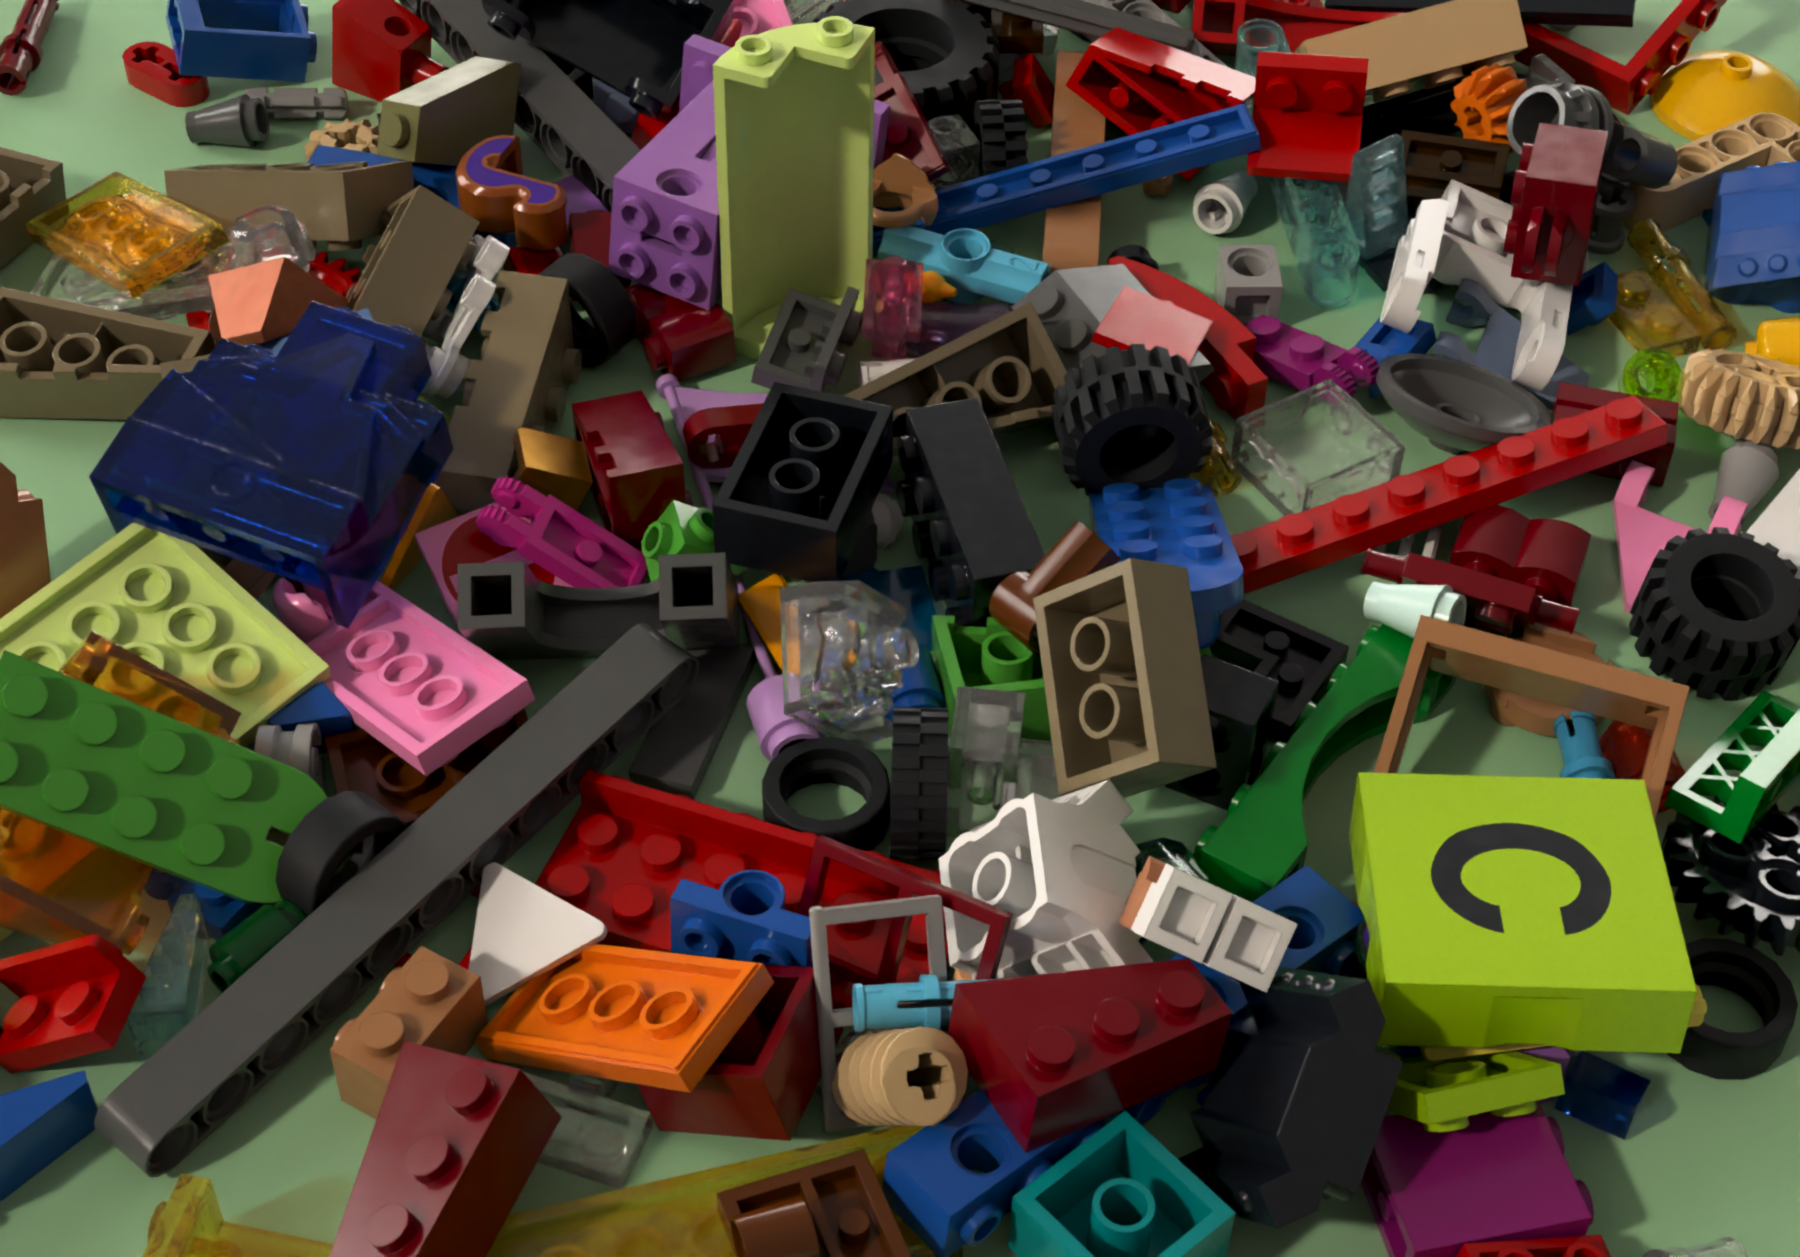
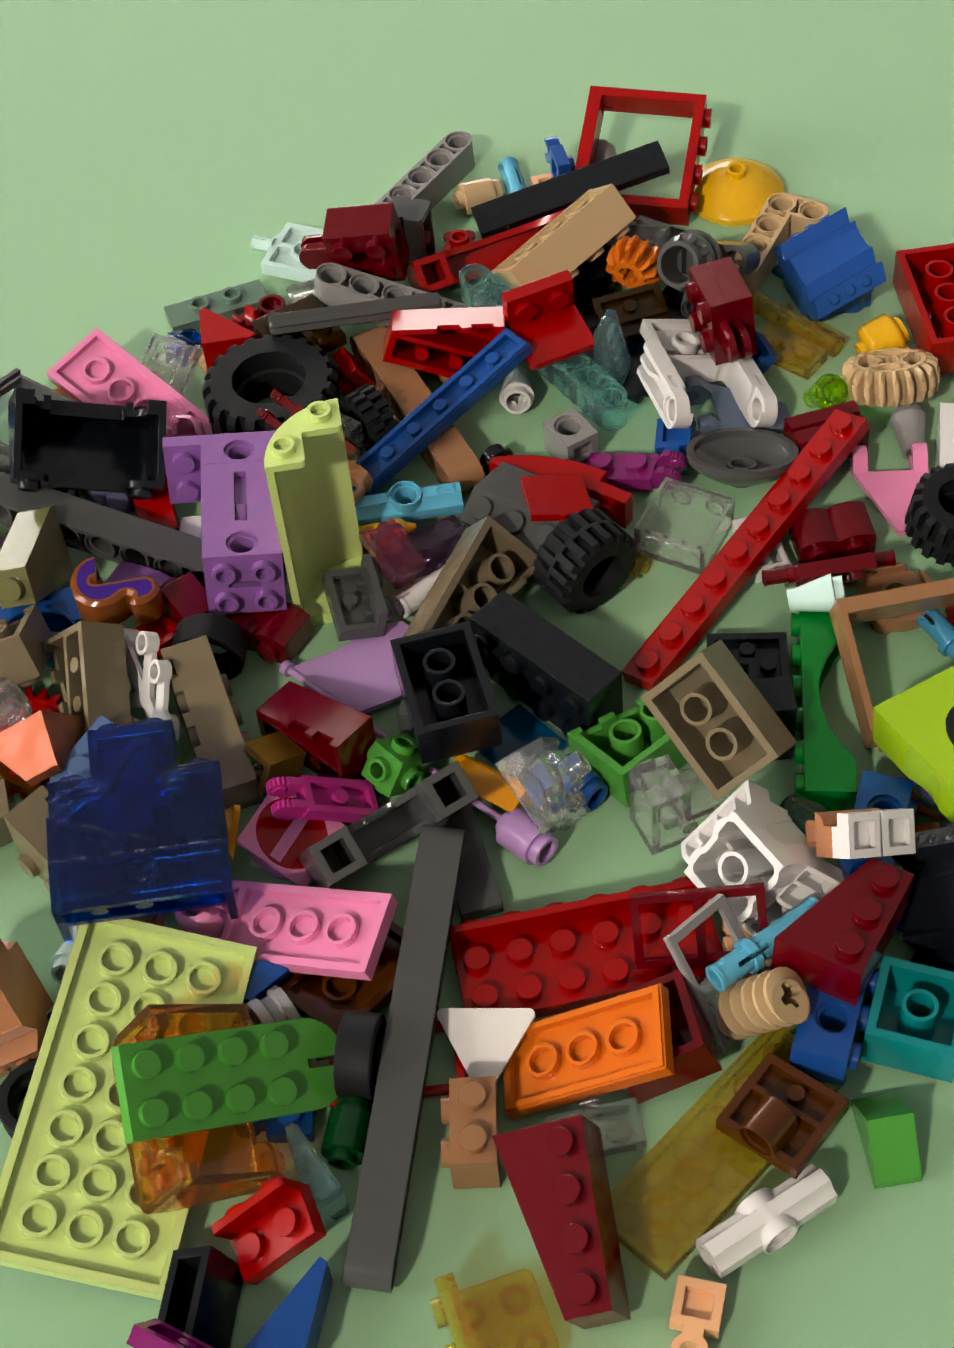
camera: 25 degrees left, 5 degrees up
(731, 428) = (364, 679): dark red beam -> none
(739, 921) = (603, 978): blue plate -> none
(829, 762) = (574, 844): black tyre -> none
(919, 783) = (635, 834): black tyre -> none
(1071, 558) = (634, 679): reddish brown piece -> none
(1180, 529) = (658, 623): blue plate -> none

